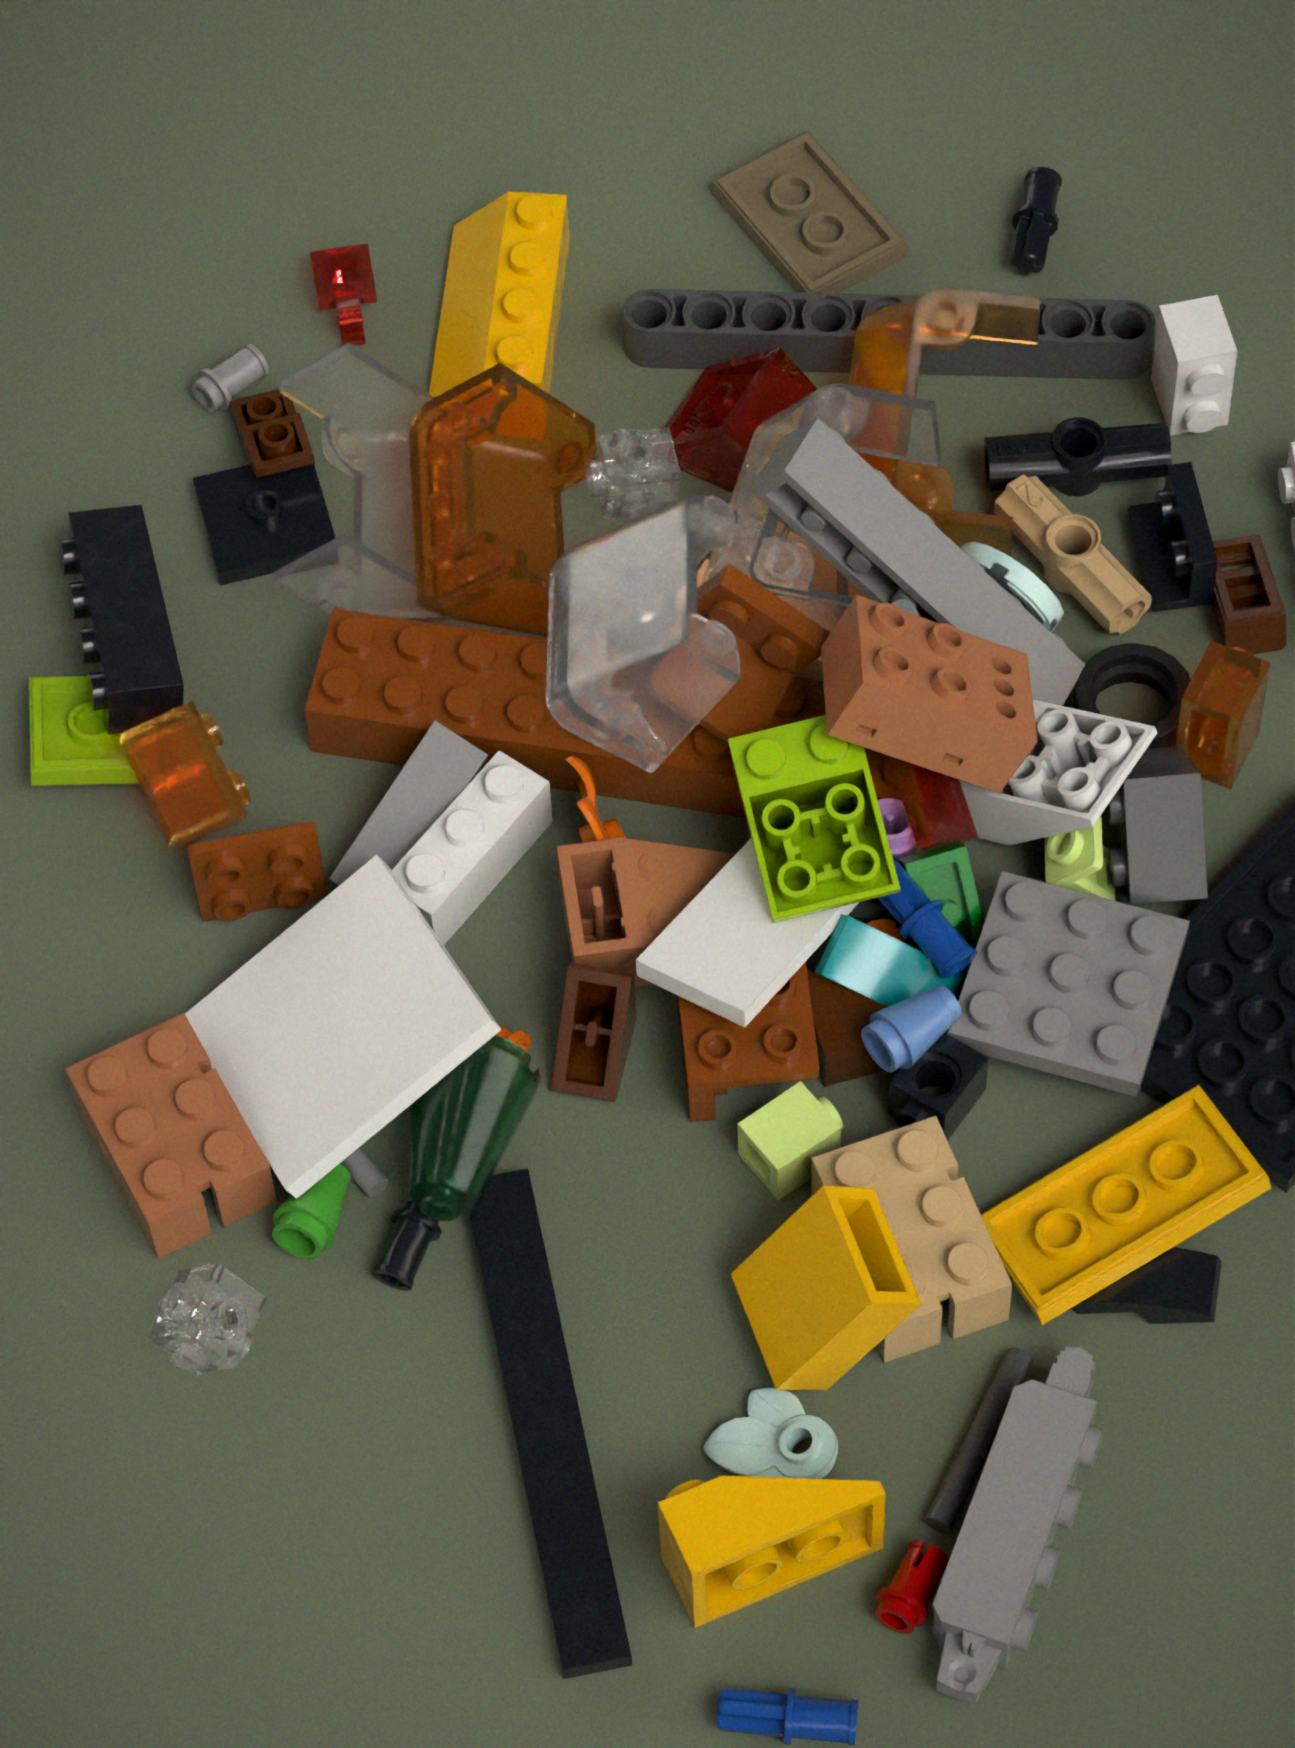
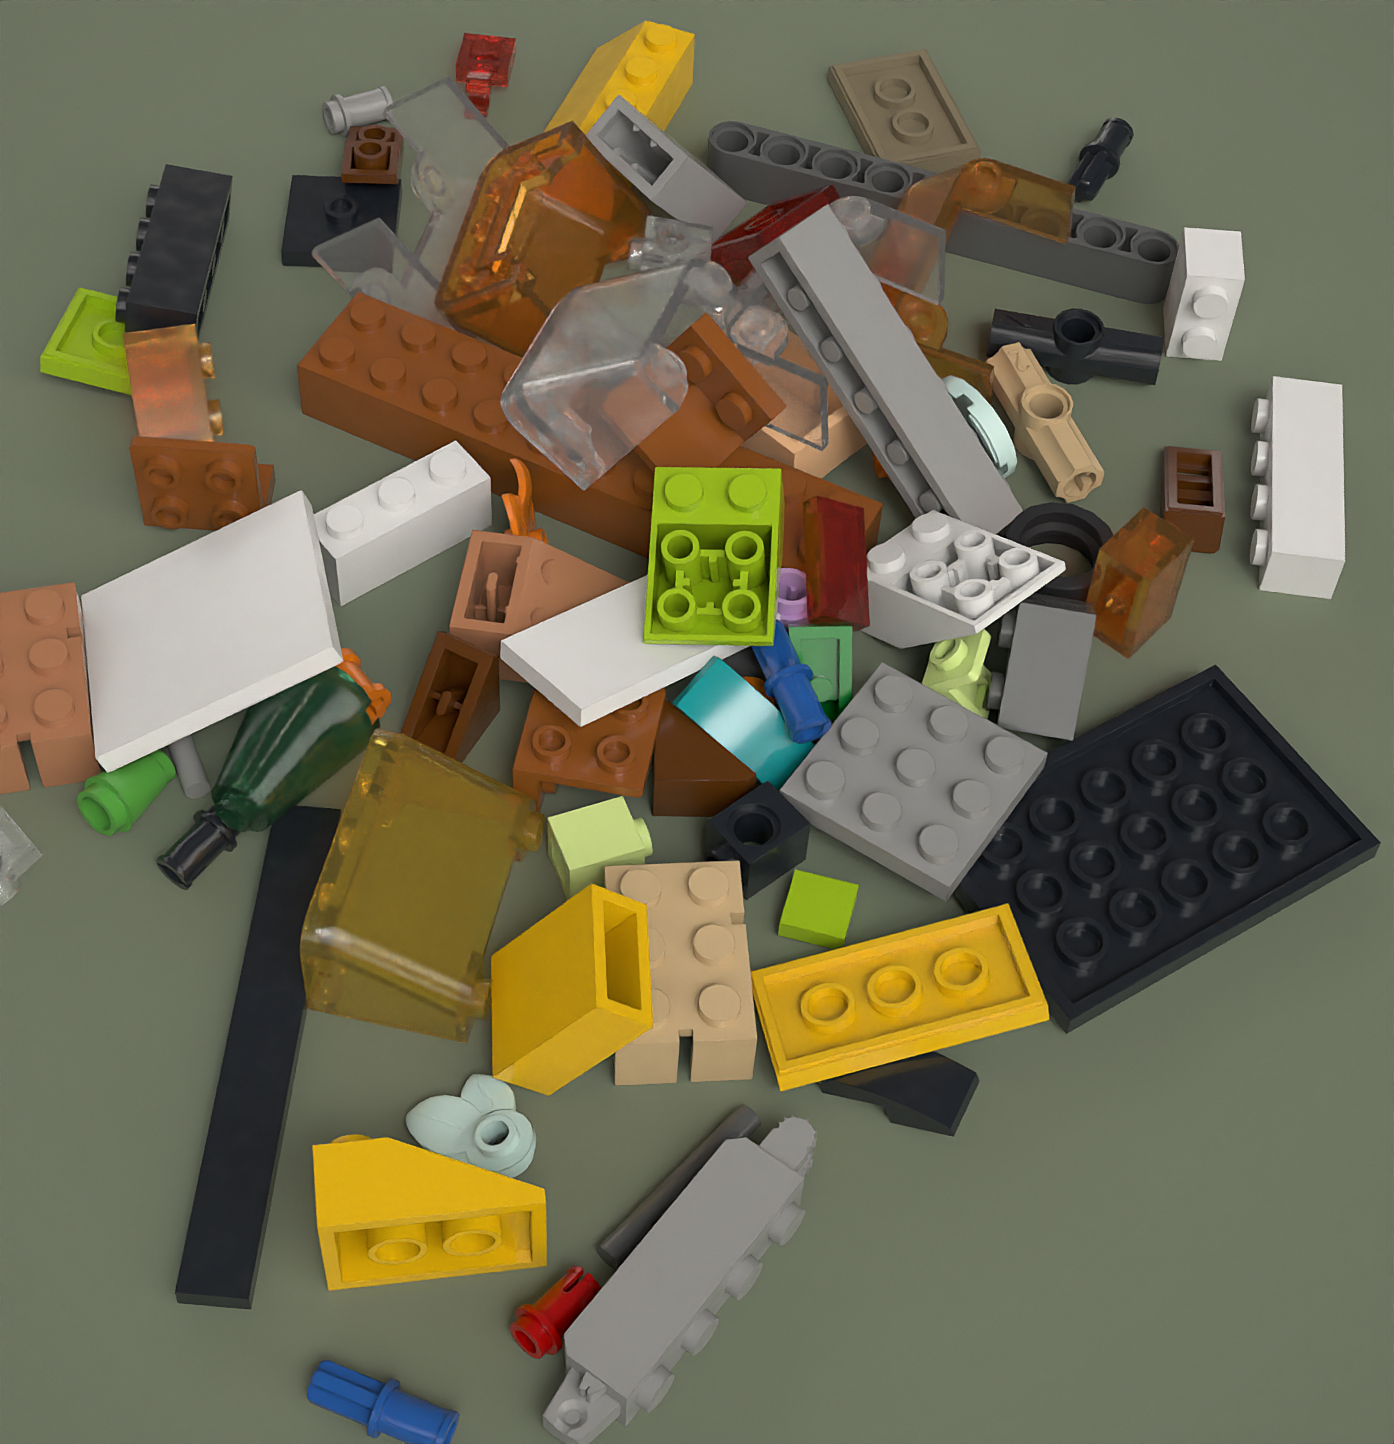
camera: 10 degrees right, 5 degrees down
(416, 799) = (379, 450): light grey tile -> none
(597, 376) = (664, 168): none -> light grey slope
(642, 1230) = (414, 891): none -> clear yellow windscreen
(909, 1028) = (741, 772): medium blue cone -> none
(928, 693) = (855, 474): nougat piece -> none
(1017, 1137) = (818, 910): none -> lime tile
(1175, 543) = (1140, 436): black bracket -> none

